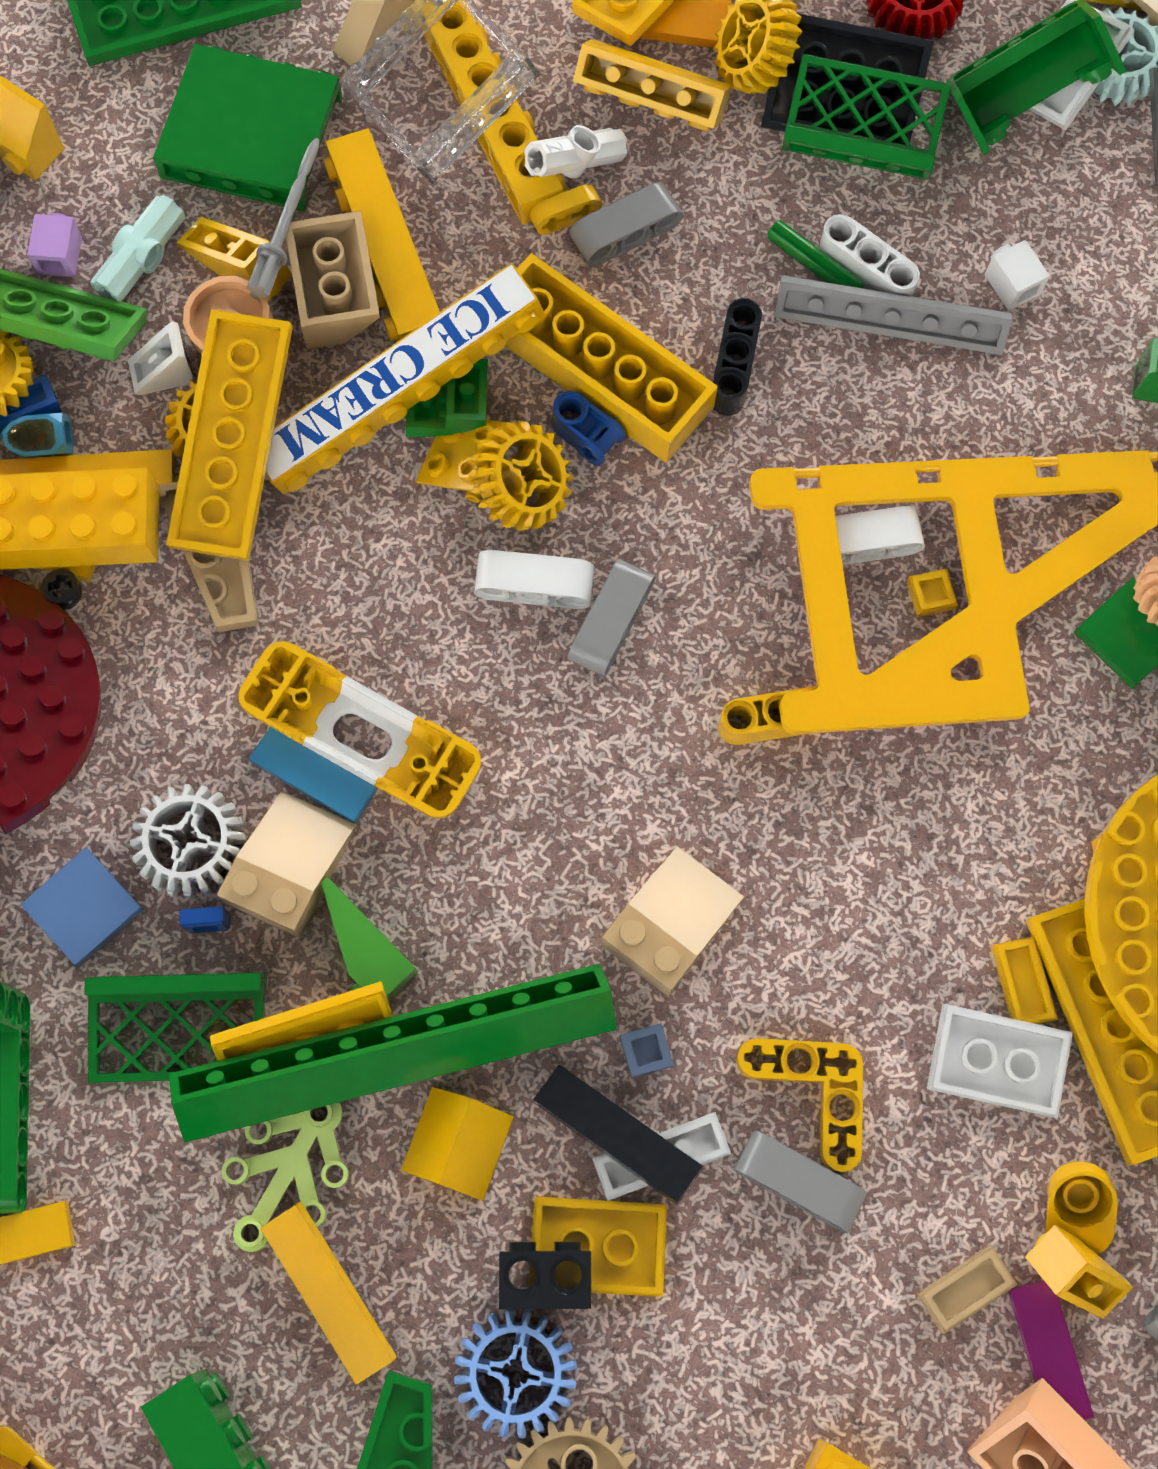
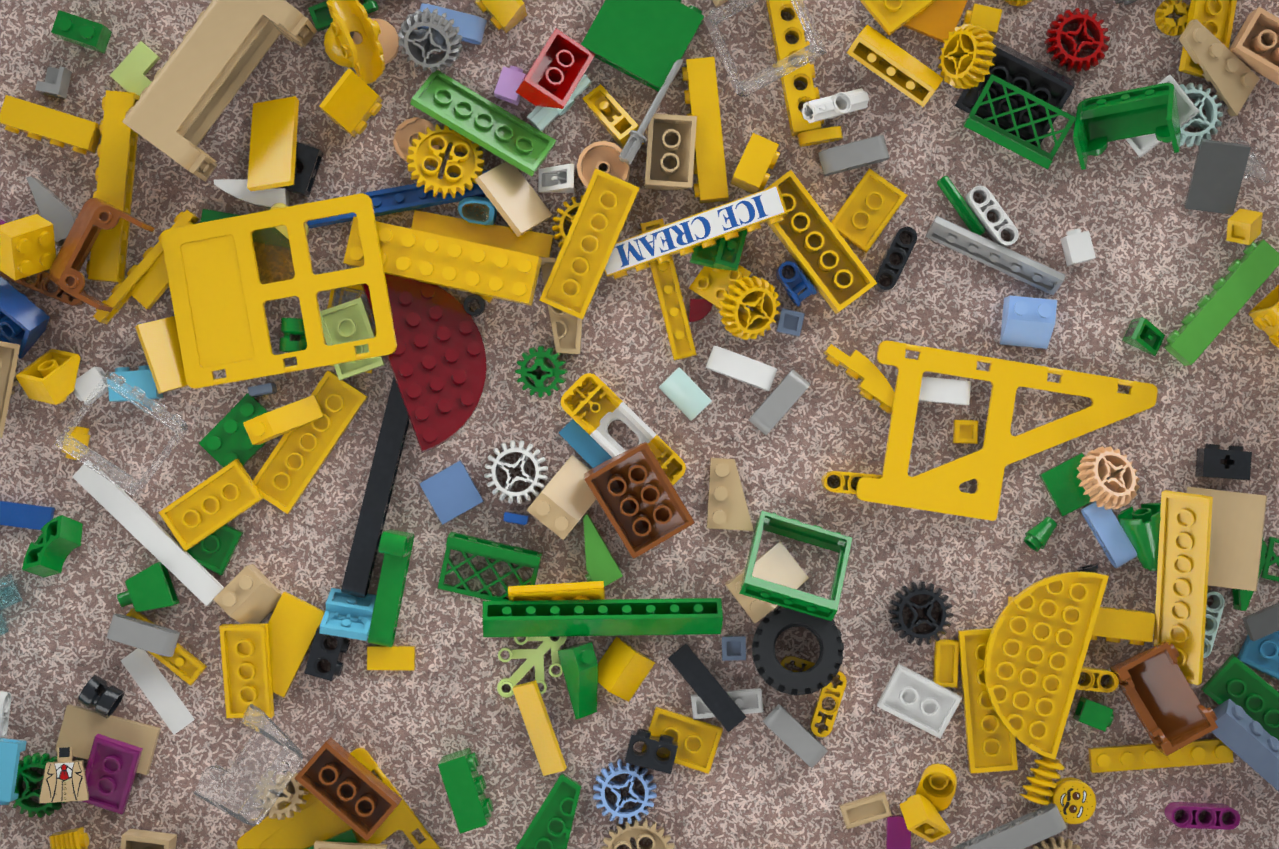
camera: 15 degrees right, 15 degrees up
(92, 403) = (513, 198): none -> tan tile
(115, 199) = (555, 71): none -> red slope
(190, 646) = (541, 380): none -> green gear
(384, 1175) = (581, 677): none -> green slope
(398, 518) = (671, 303): none -> yellow tile
(411, 823) = (638, 499): none -> dark orange slope
(441, 507) = (699, 309): none -> dark red tile
(451, 641) = (685, 393): none -> light aqua brick
(472, 252) = (754, 163): none -> yellow brick
(565, 798) = (726, 498): none -> tan wing
(595, 490) = (790, 322): none -> sand blue plate
(675, 296) = (868, 210): none -> yellow tile
(717, 916) = (787, 596): none -> green window
(727, 529) = (873, 382): none -> yellow slope
(769, 962) = (796, 682): none -> black tyre
(938, 896) = (913, 621): none -> black gear
(976, 397) = (1027, 321): none -> light blue slope
(1109, 724) = (1039, 535): none -> green cone

